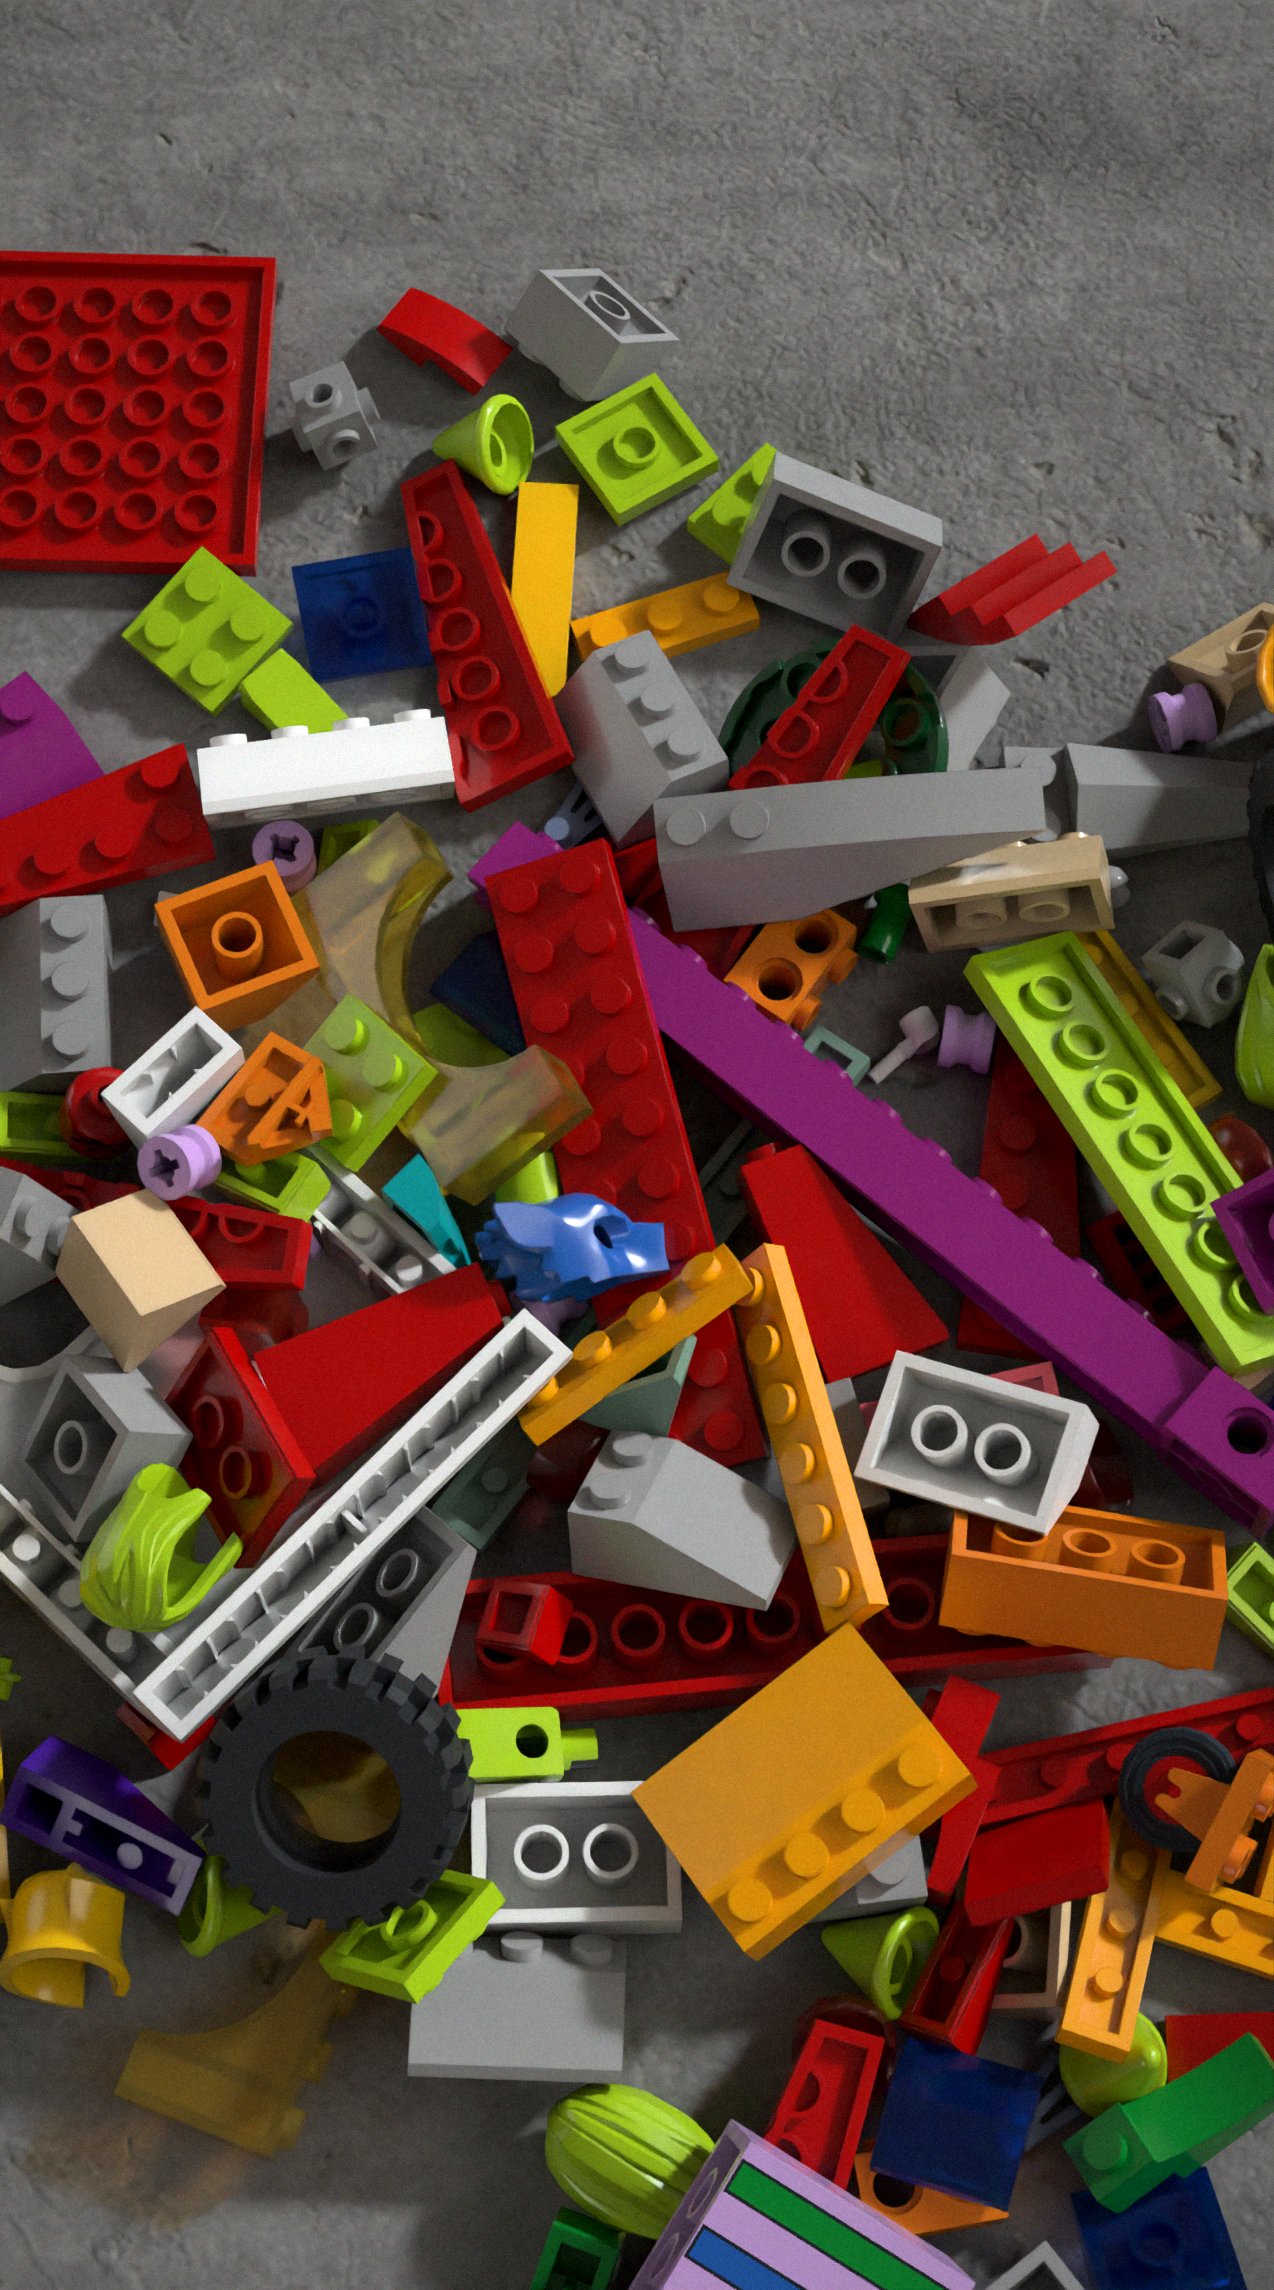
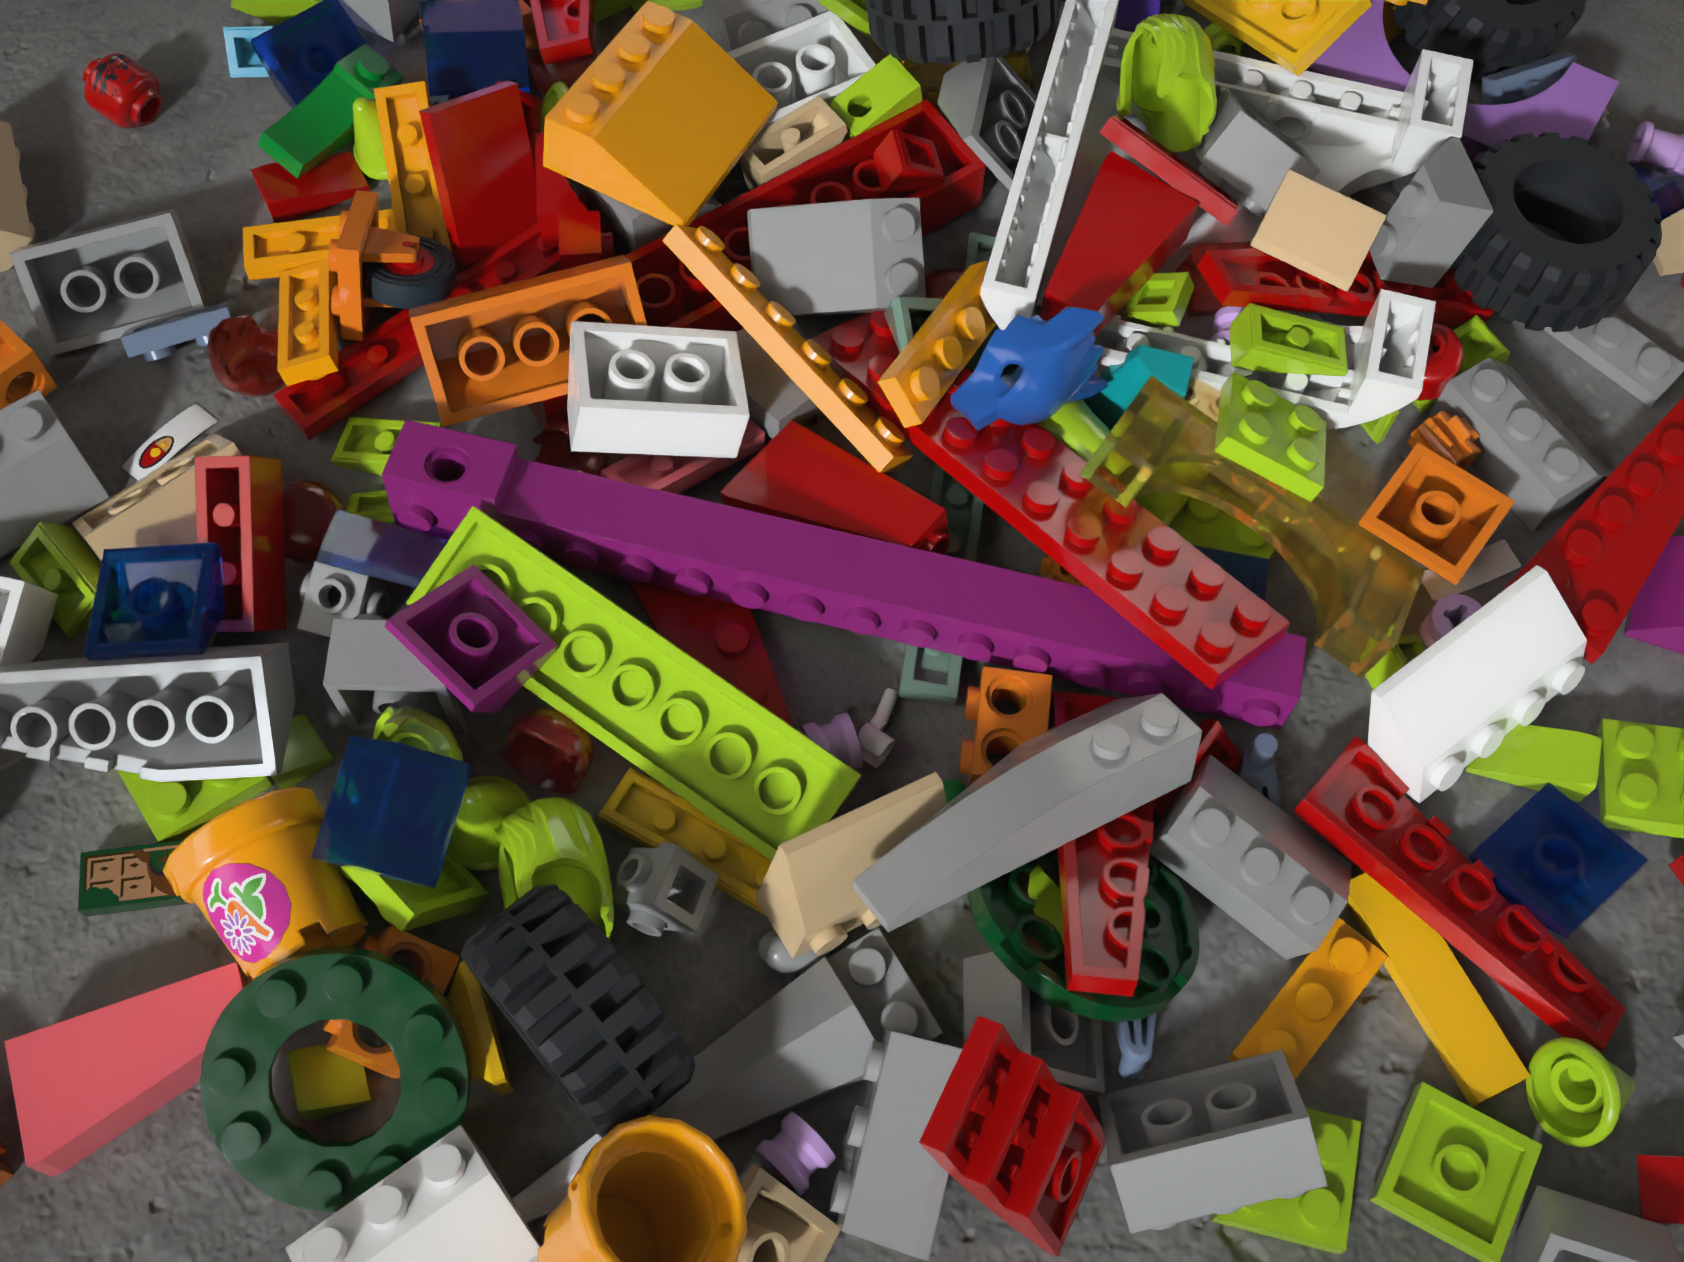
camera: 150 degrees right, 5 degrees down
(141, 1023) = (1448, 437): none -> orange gear
(185, 1147) = (1345, 304): lavender wheel -> none
(271, 1105) = (1314, 375): orange slope -> none
(341, 1296) = (1161, 300): none -> lime plate
(631, 1740) = (792, 142): none -> tan slope
(1092, 658) = (893, 1181): none -> light grey slope

